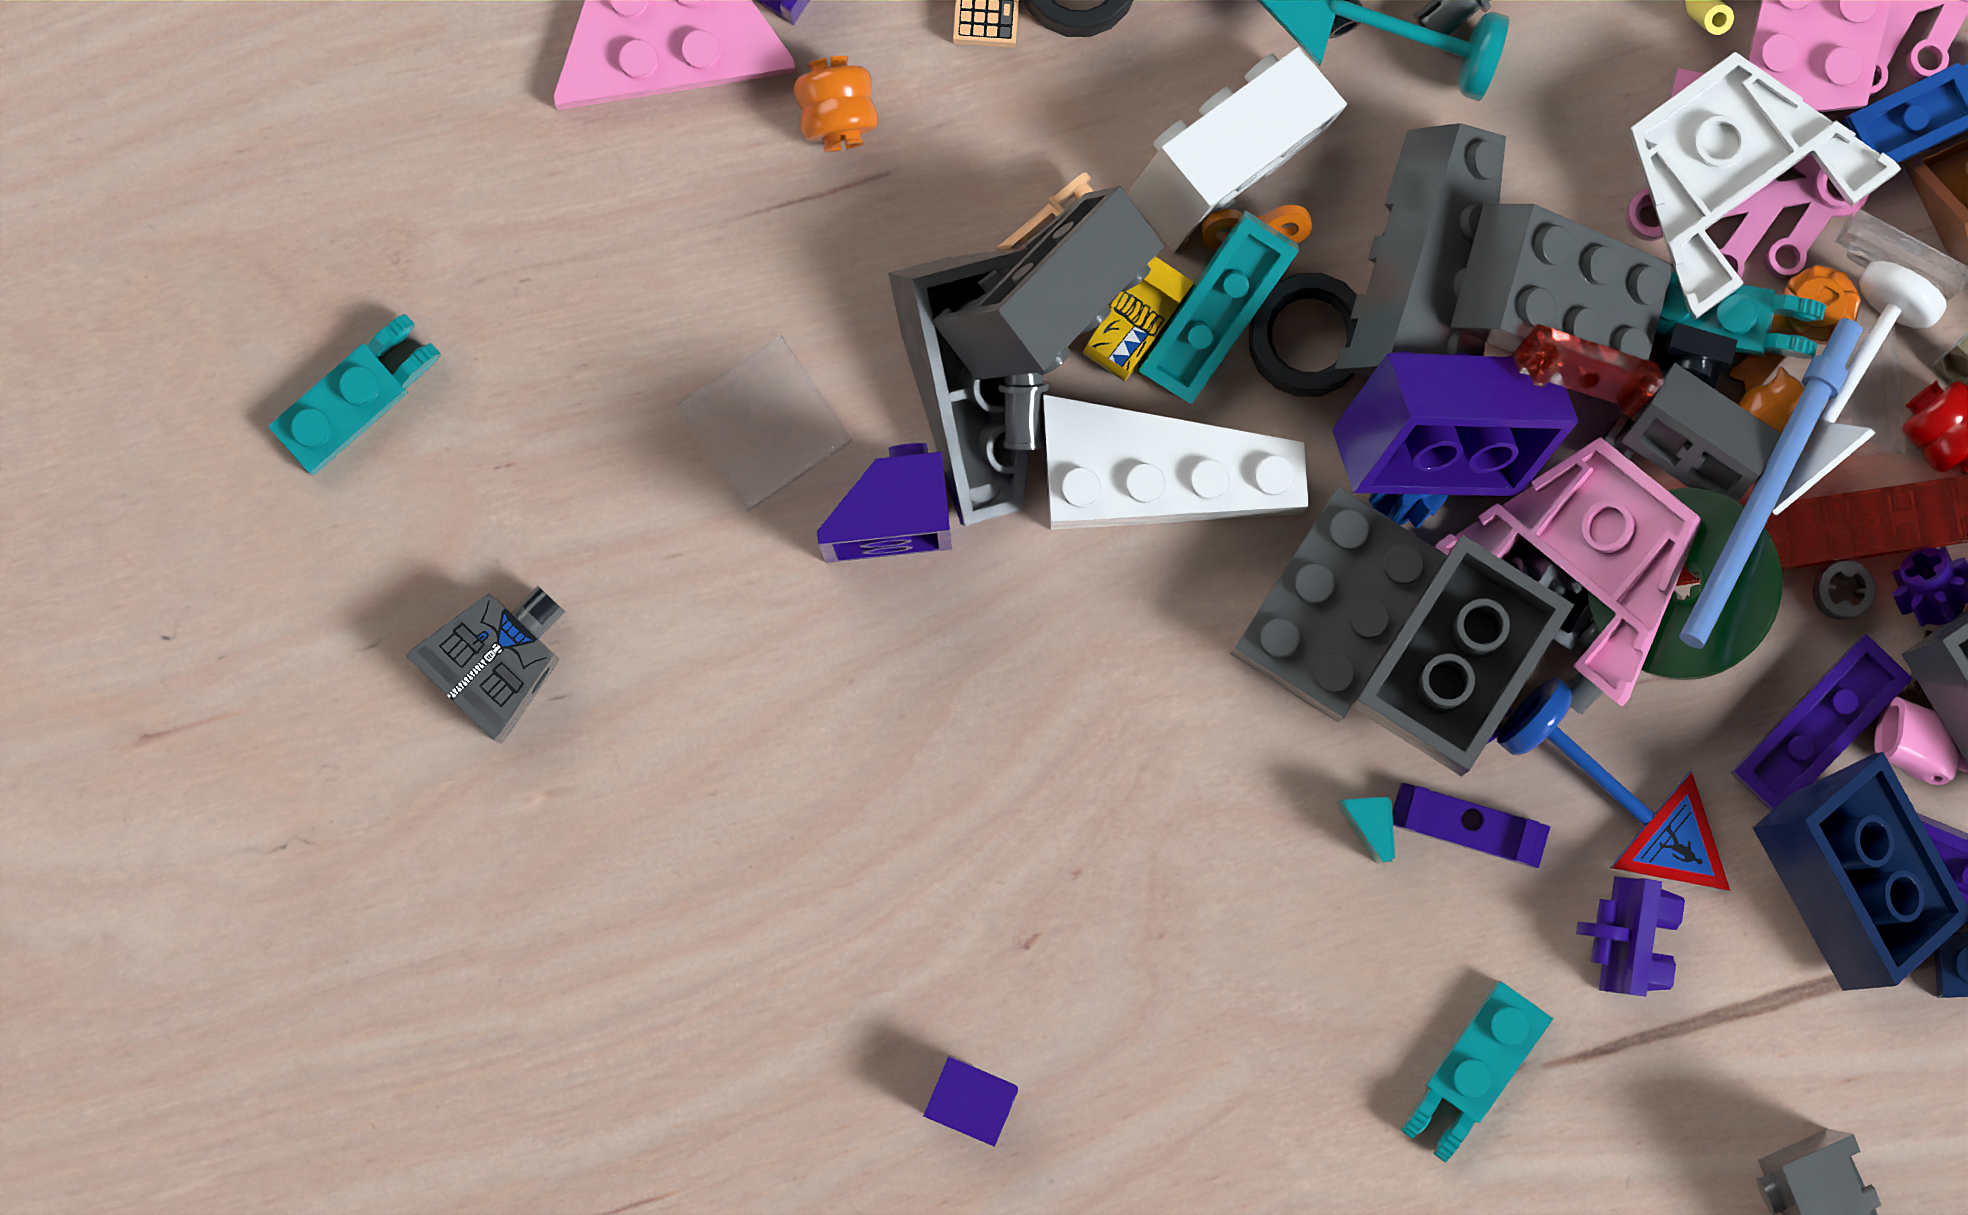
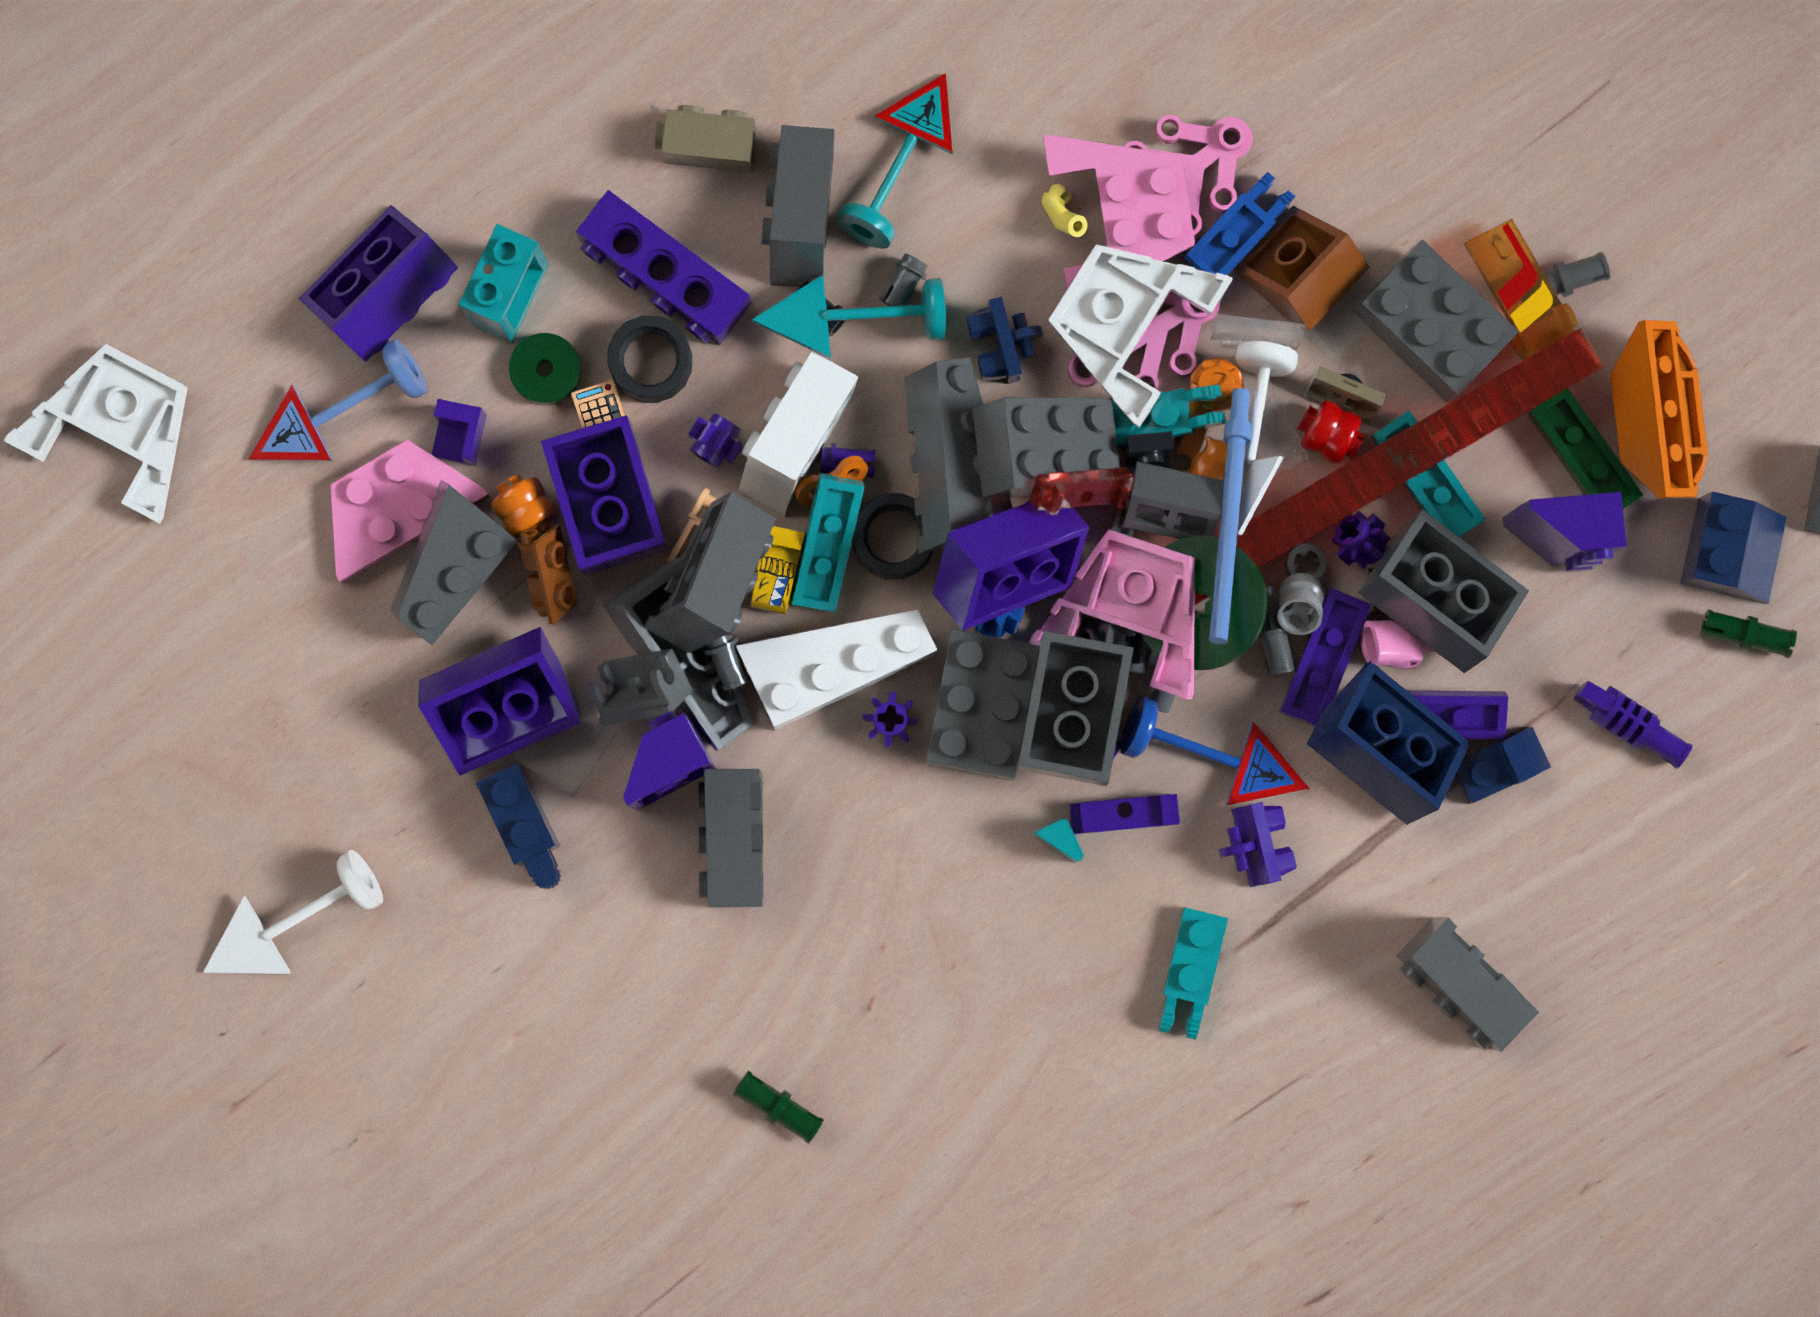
camera: 30 degrees left, 0 degrees up
(246, 535) = (248, 945): none -> white piece
(350, 398) = (281, 827): teal hinge -> none
(492, 659) = (443, 962): torso -> none
(667, 518) = (522, 824): none -> dark blue hinge
(701, 344) = (498, 701): none -> dark purple slope
(709, 136) = (449, 563): none -> dark grey wedge
(831, 225) = (552, 588): none -> dark orange hinge
(855, 1027) = (778, 1107): none -> dark green pin
(894, 398) = (639, 687): none -> dark grey hinge
(937, 646) = (732, 838): none -> dark grey wedge
(949, 128) = (604, 495): none -> dark purple brick
(971, 1101) = (872, 1125): dark purple panel -> none
(1123, 114) = (715, 440): none -> dark purple gear
(1225, 572) = (881, 710): none -> dark purple gear
(1271, 196) = (833, 456): none -> dark purple pin
(1549, 161) = (994, 322): none -> dark blue hips
(1764, 673) = (1274, 639): none -> dark grey axle
(1818, 639) = (1300, 604): none -> light grey wheel

